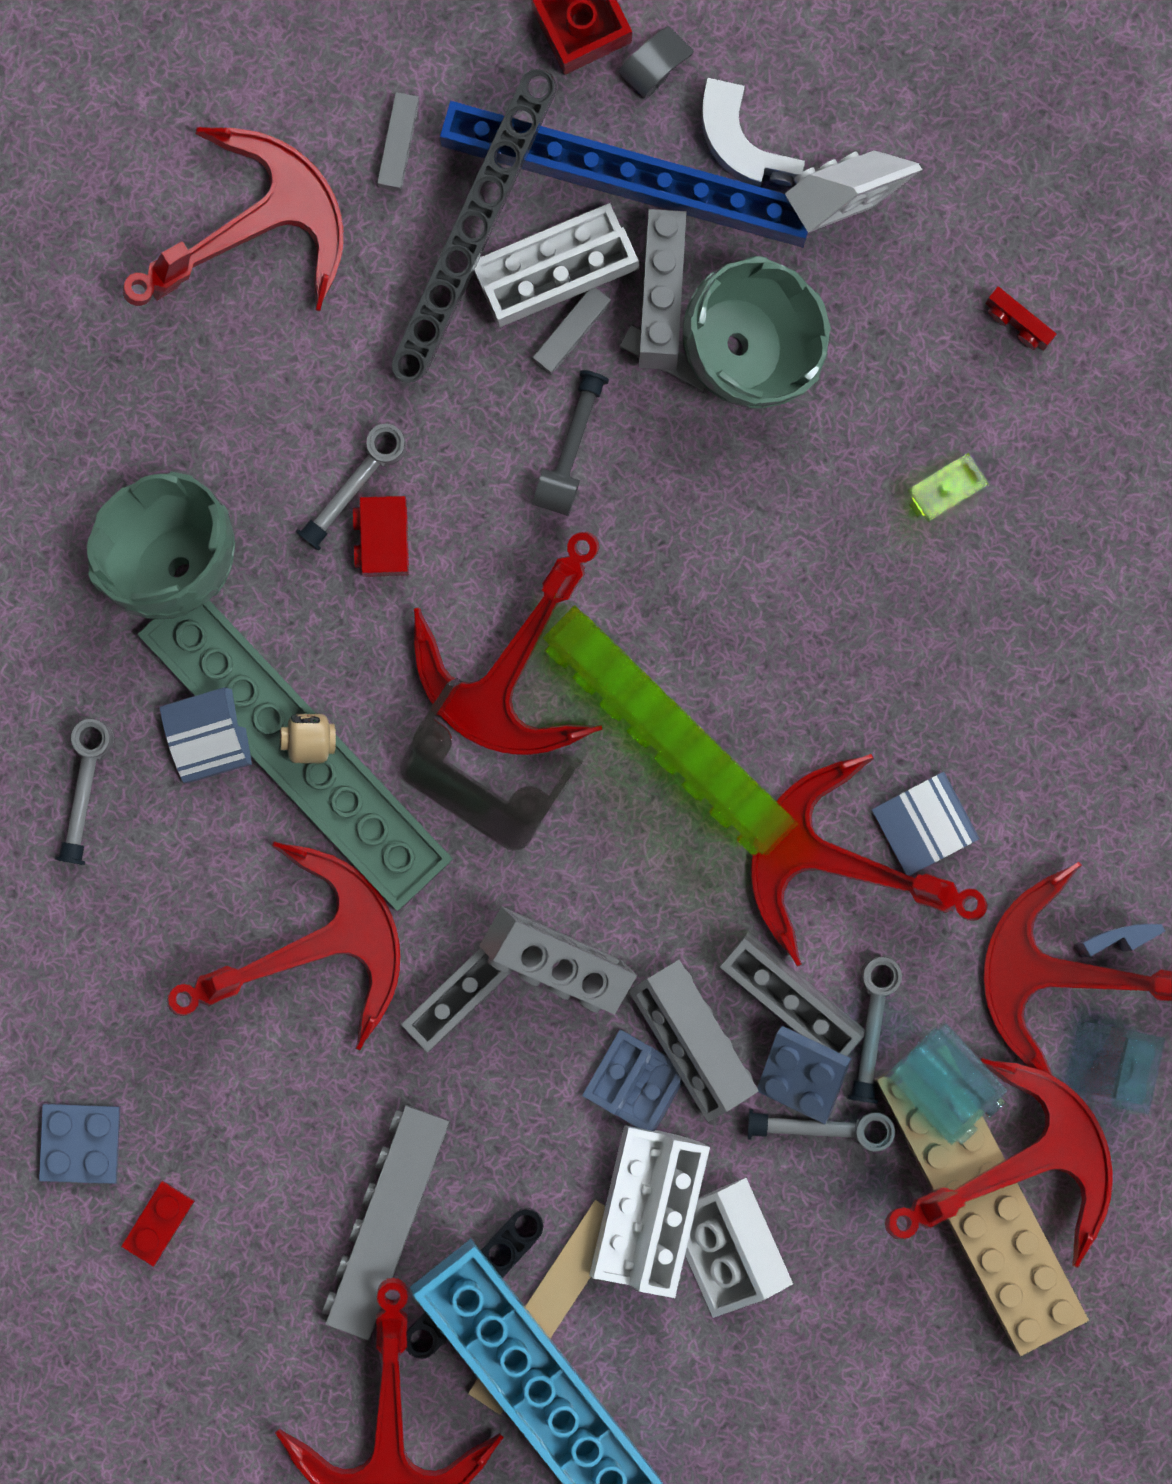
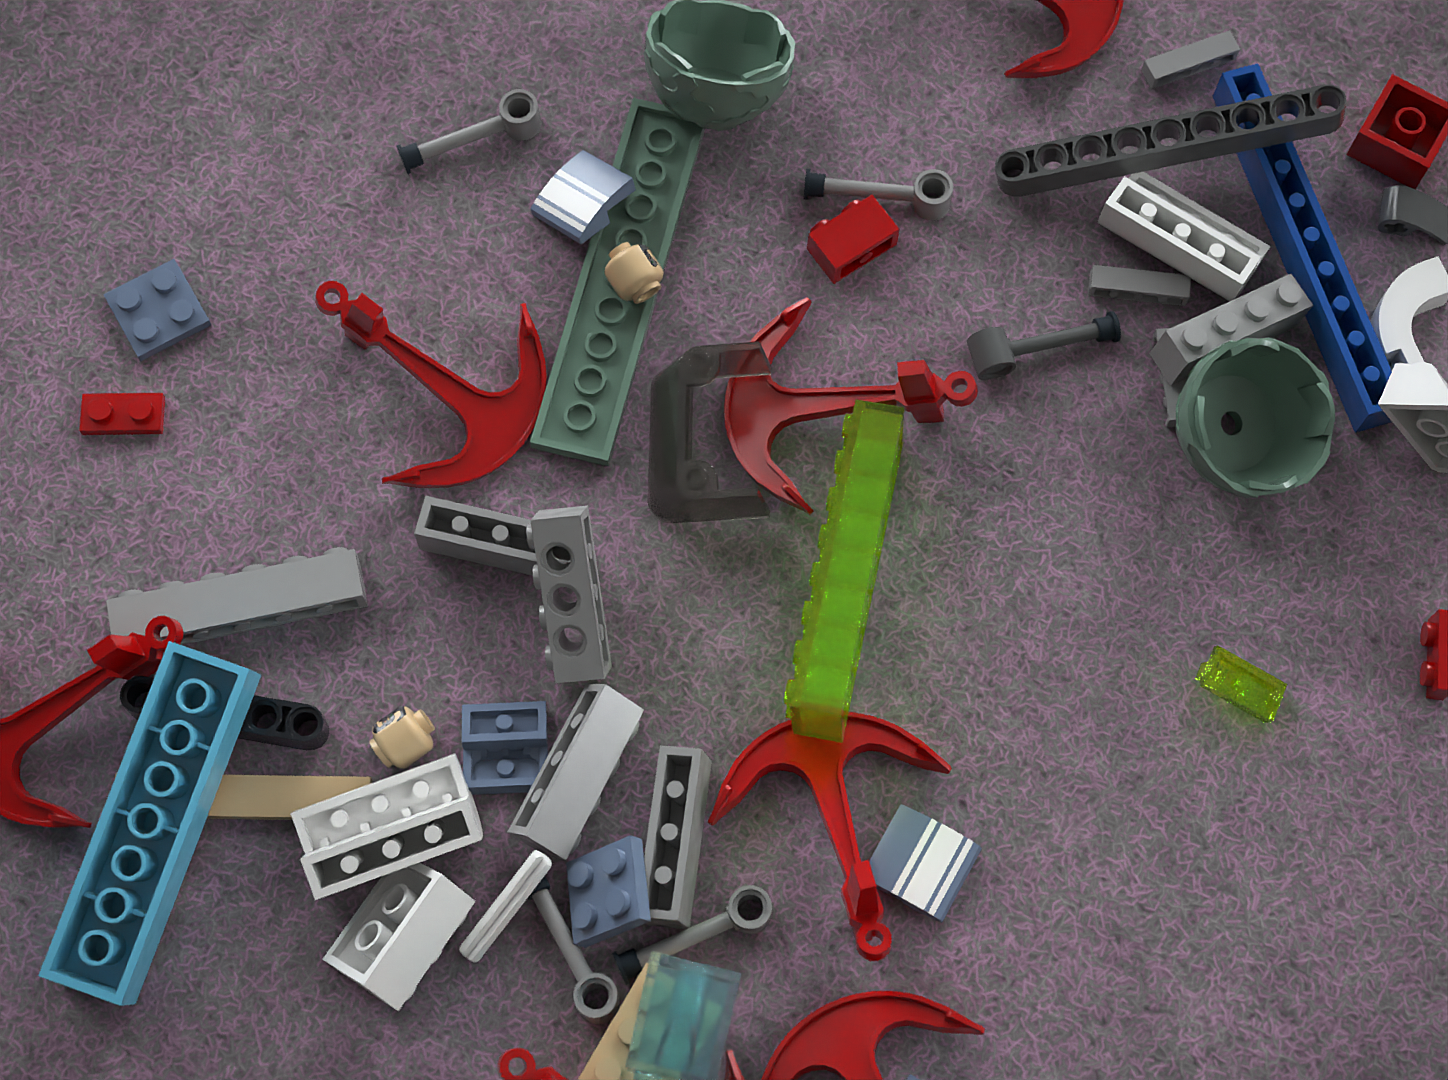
camera: 55 degrees right, 15 degrees down
(580, 1157) = (402, 737): none -> tan head
(764, 1157) = (505, 906): none -> white axle

